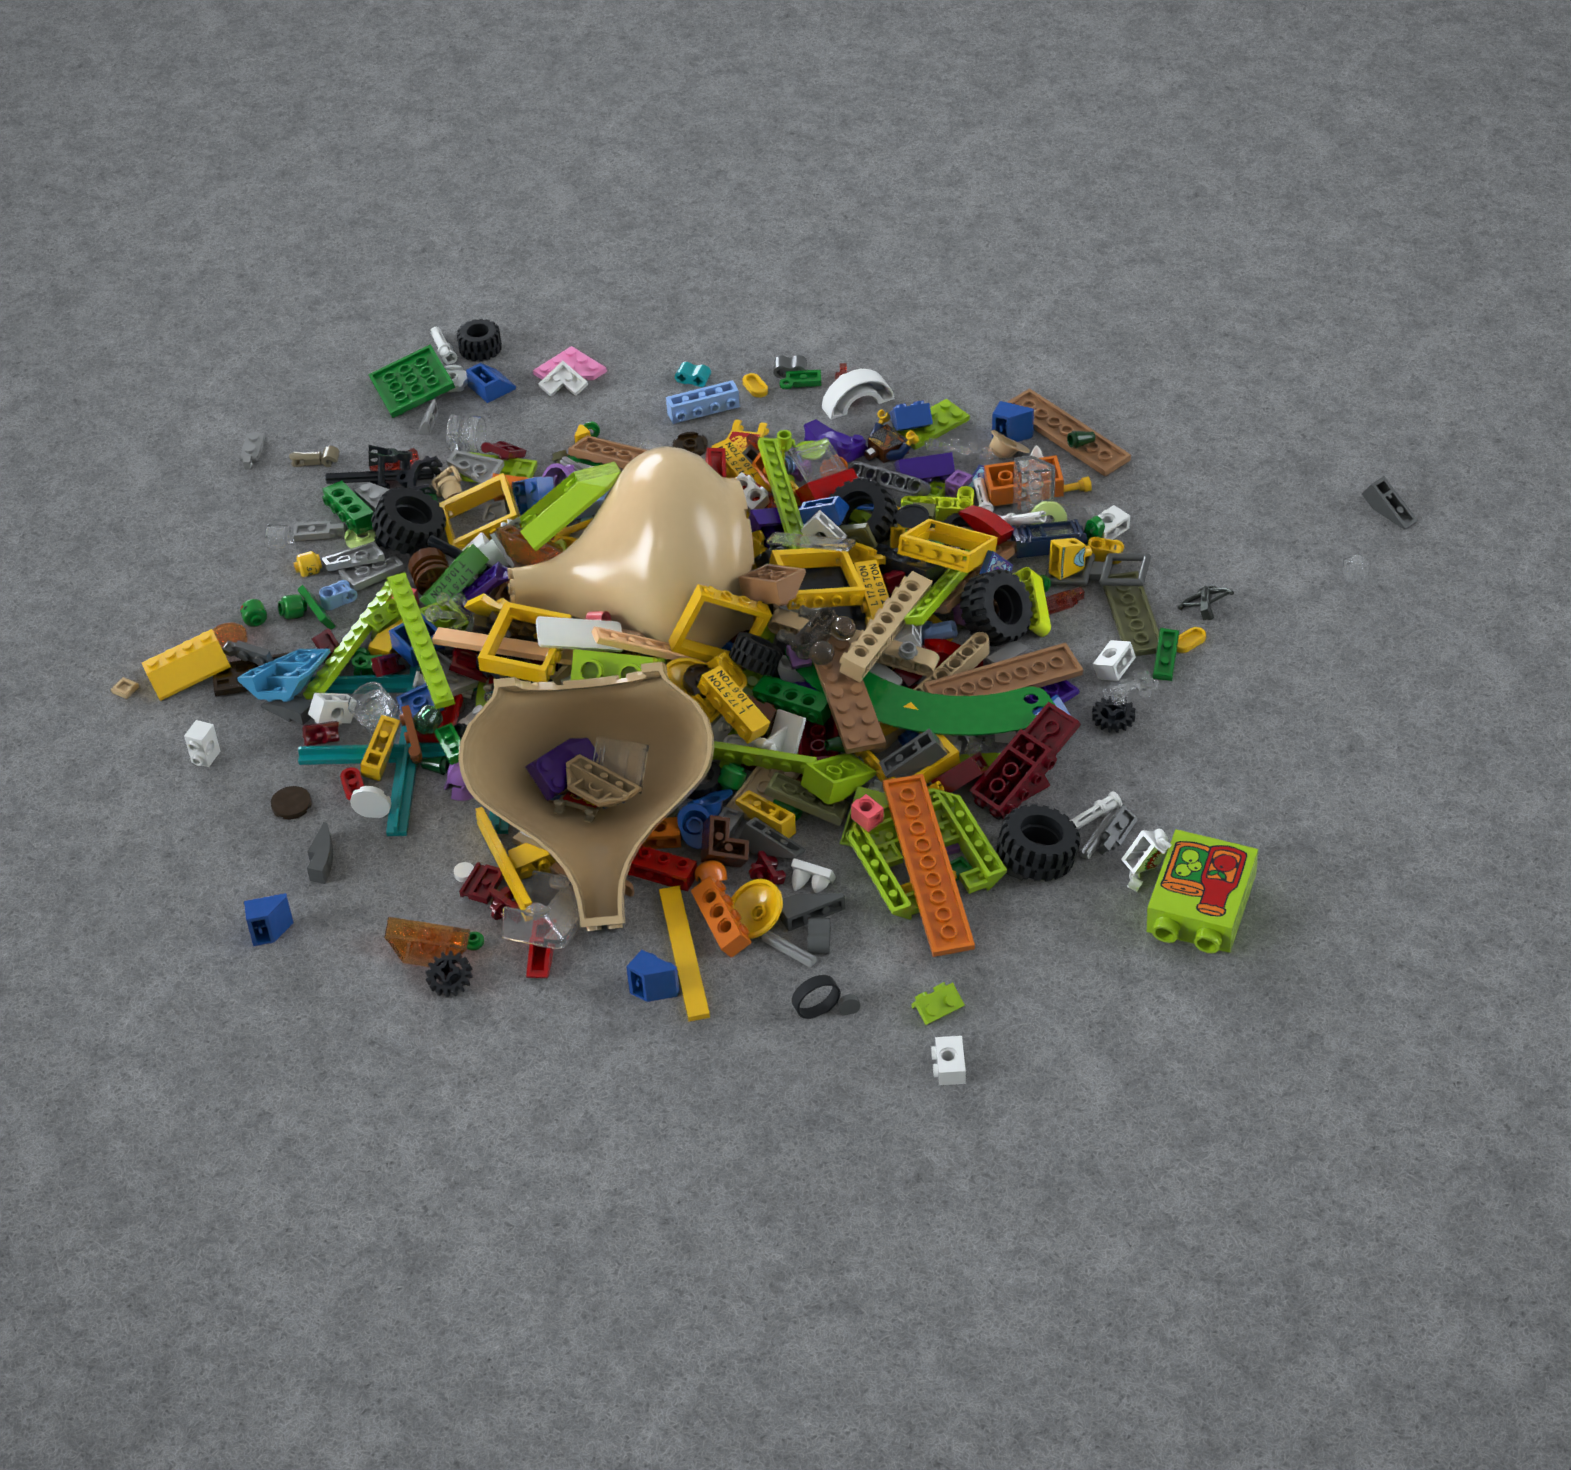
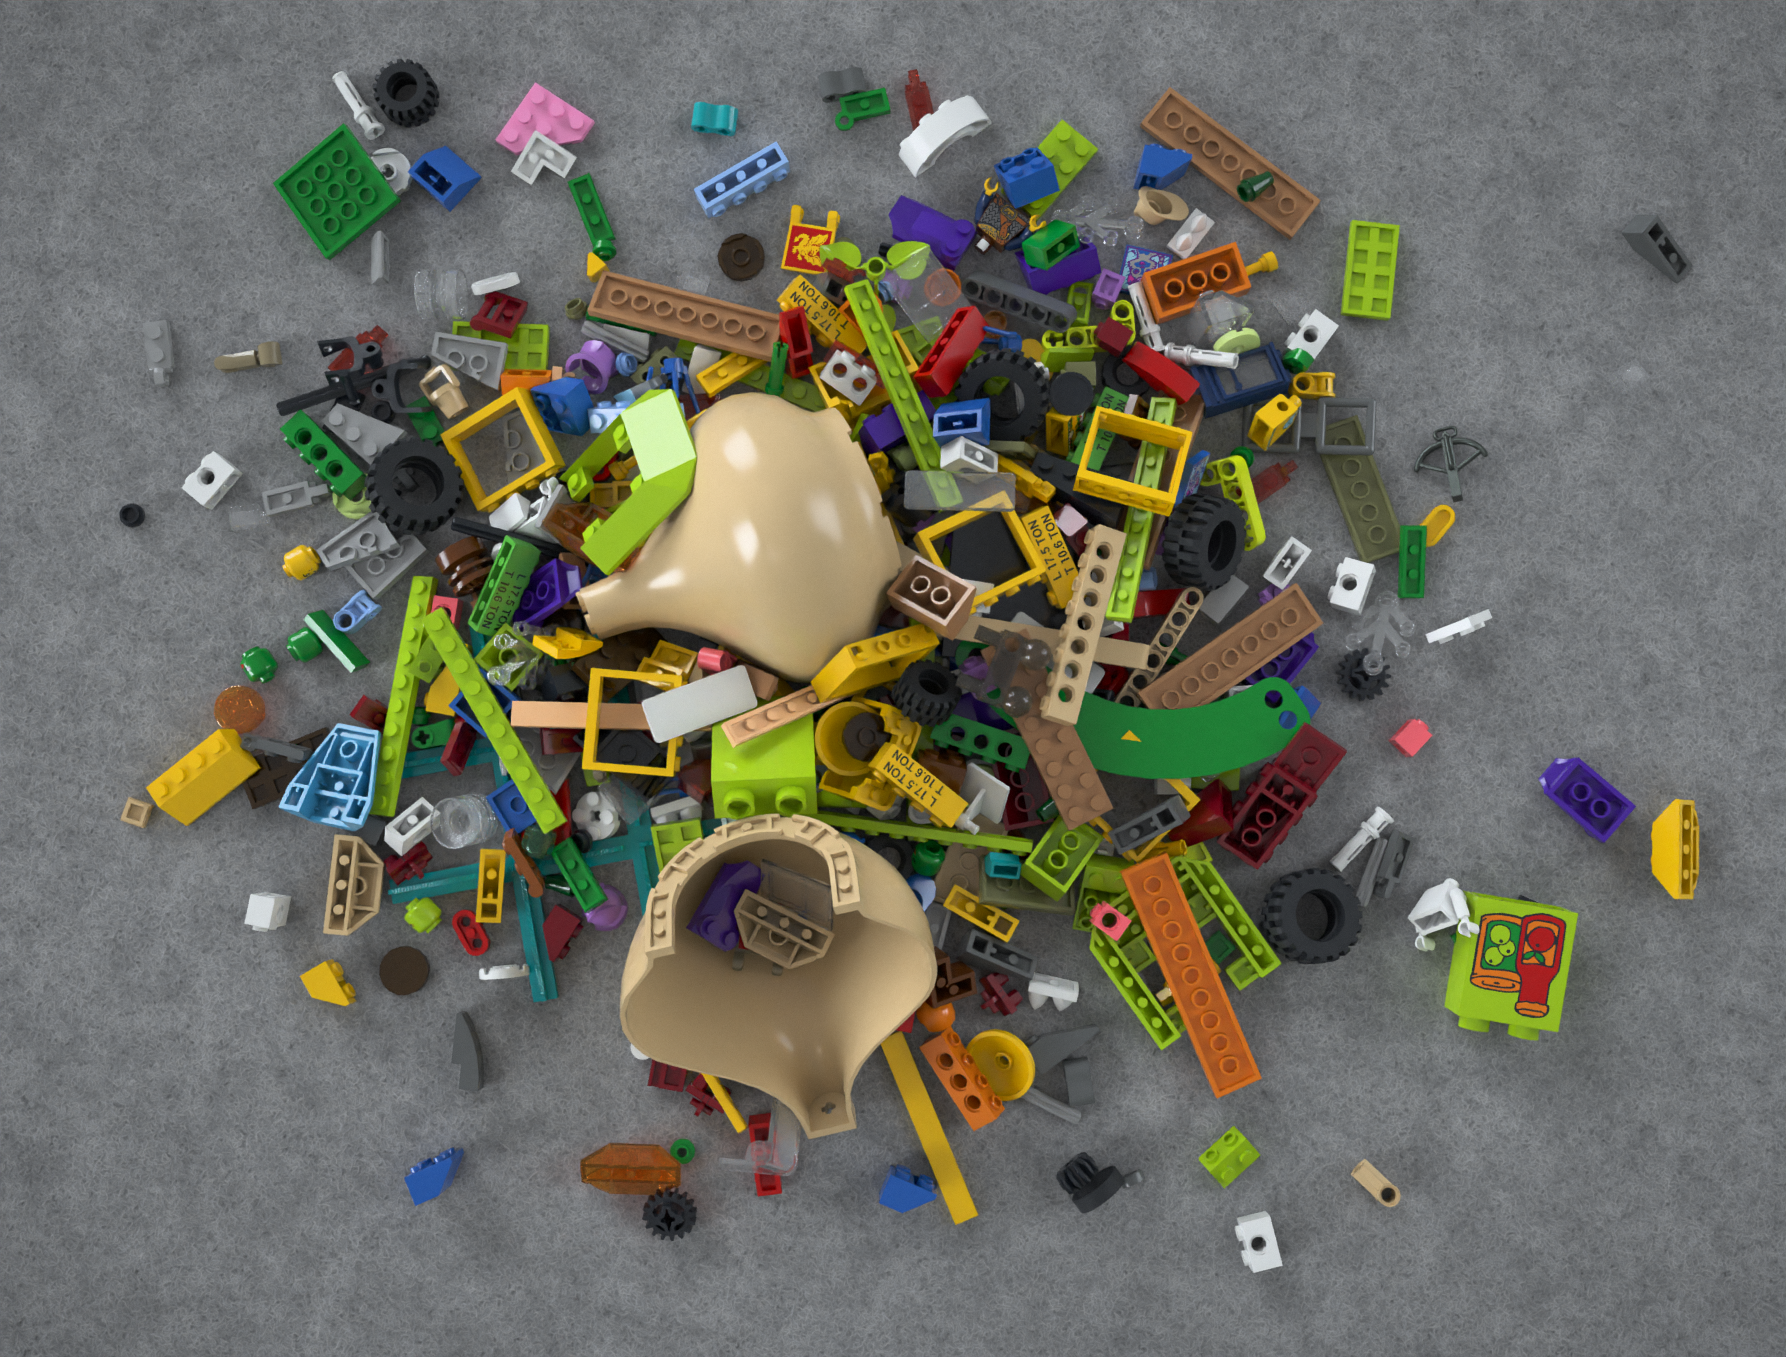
camera: 10 degrees left, 40 degrees up
(194, 528) = (132, 515): none -> black plate
(228, 800) = (327, 984): none -> yellow slope
(261, 513) = (225, 477): none -> white brick
(273, 736) = (353, 885): none -> tan wedge
(319, 766) = (423, 915): none -> lime head
(424, 788) = (559, 930): none -> dark red slope
(507, 436) = (495, 283): none -> white tile
(588, 408) = (591, 209): none -> green tile
(755, 385) = (802, 125): yellow tile -> none
(788, 778) = (1002, 865): none -> teal piece
(794, 982) = (1077, 1173): none -> black gear
(907, 650) = (1121, 657): light grey plate -> none
(918, 447) = (1050, 244): none -> green brick
(953, 498) = (1112, 336): none -> dark red brick
(1065, 1037) = (1375, 1183): none -> tan piece
(1067, 633) = (1286, 562): none -> white slope
(1145, 754) = (1411, 737): none -> coral brick
(1162, 496) = (1370, 270): none -> lime plate
(1195, 685) = (1463, 626): none -> white plate
(1290, 808) = (1585, 797): none -> dark purple slope
(1362, 841) = (1676, 849): none -> yellow wedge

